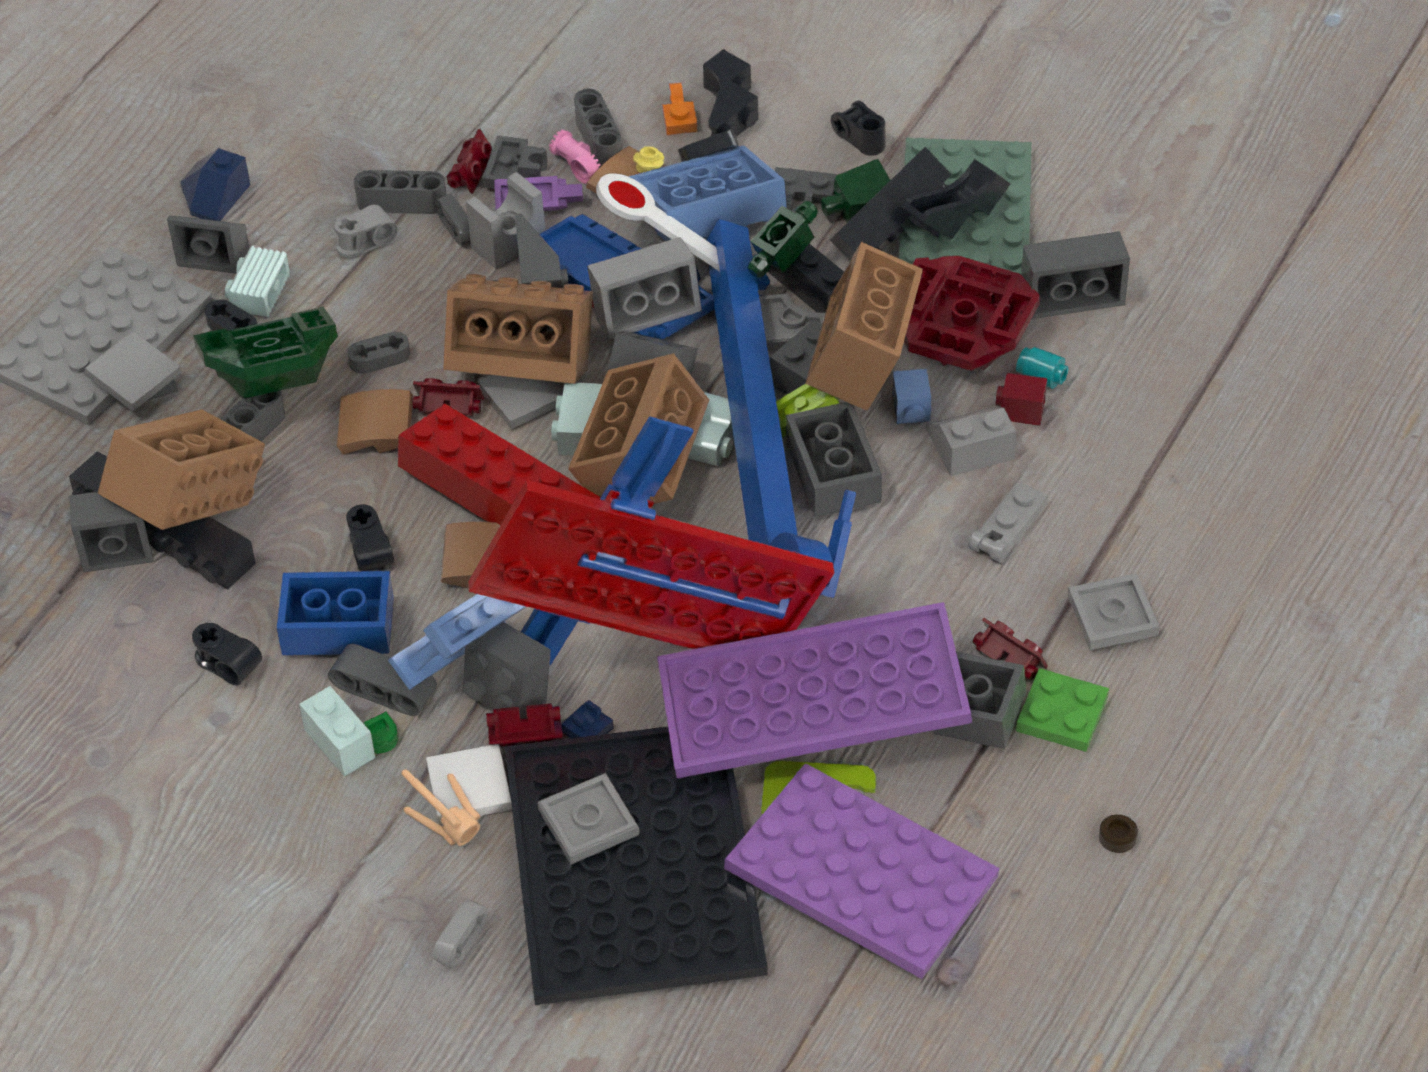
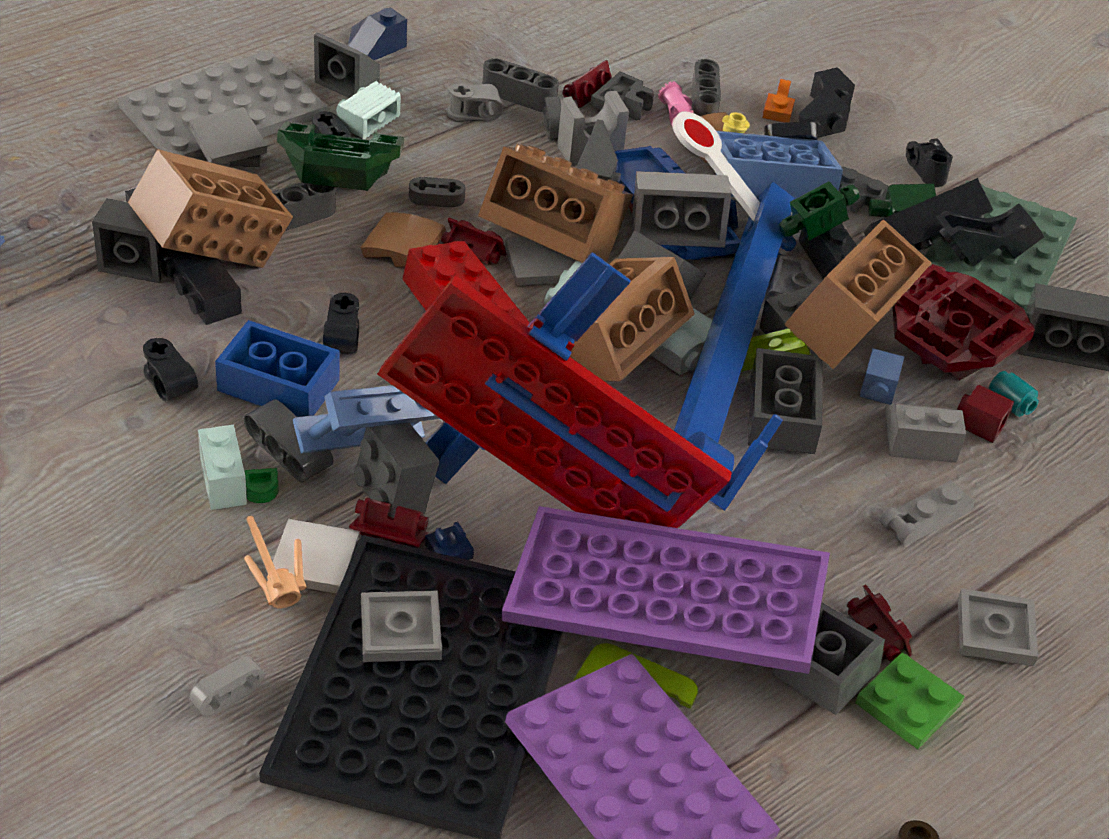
camera: 15 degrees right, 5 degrees down
(554, 192) = (642, 124): medium lavender hinge -> none

